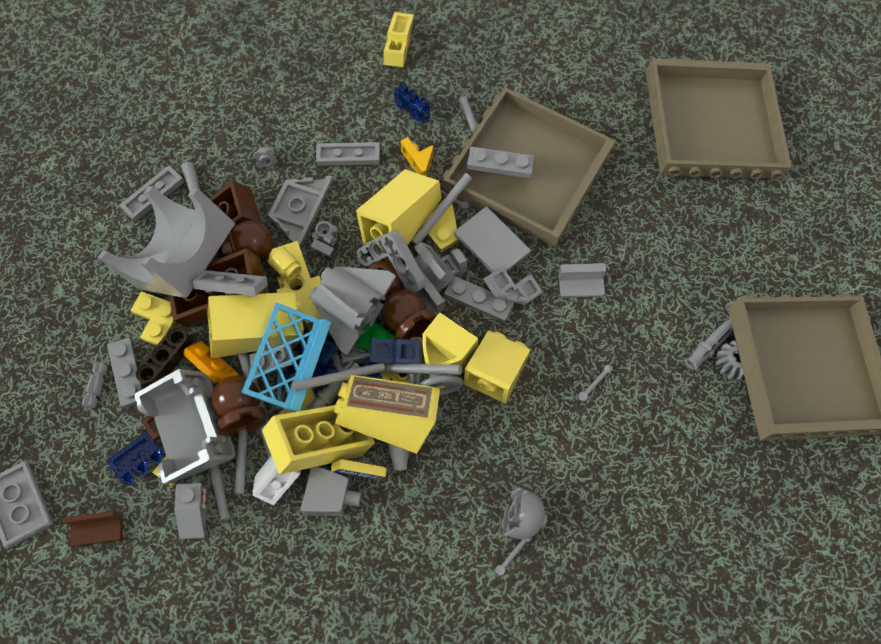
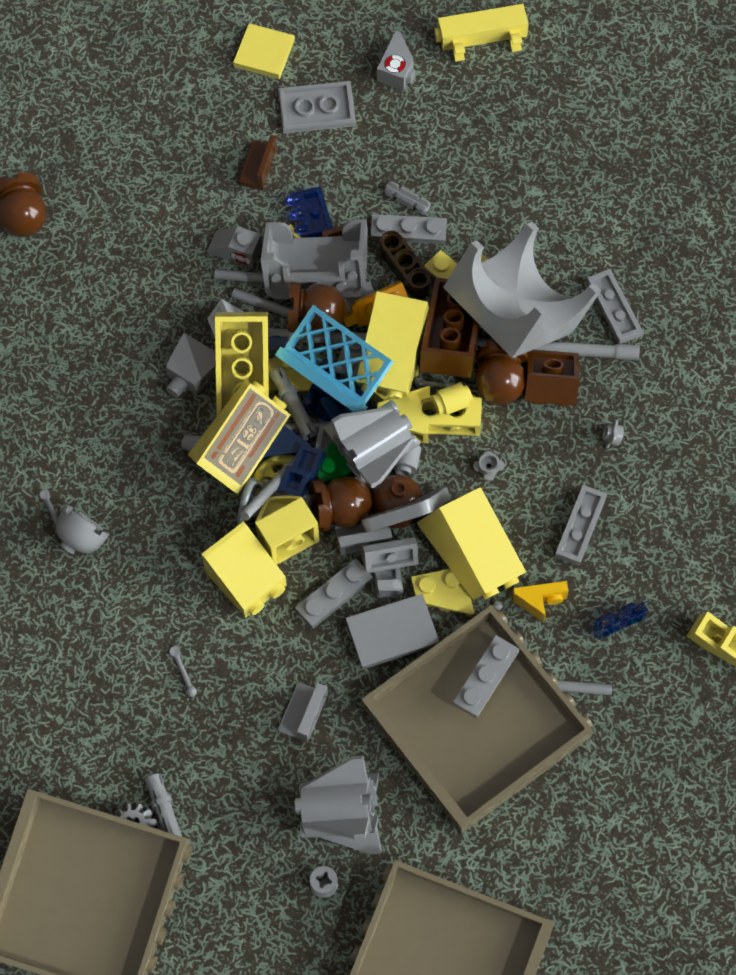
camera: 115 degrees right, 0 degrees up
(230, 283) = (435, 327): light grey plate -> none
(298, 206) = (532, 449): light grey wing -> none
(326, 246) = (464, 456): flat silver tile -> none
(337, 377) = (295, 400): light grey bar -> none
(358, 469) = (198, 397): light yellow tile -> none
(441, 209) = (454, 589): light grey bar -> none
(505, 289) = (318, 636): light grey tile -> none
(647, 215) = (341, 806): none -> light grey brick
(693, 221) = (323, 888): none -> light grey wheel

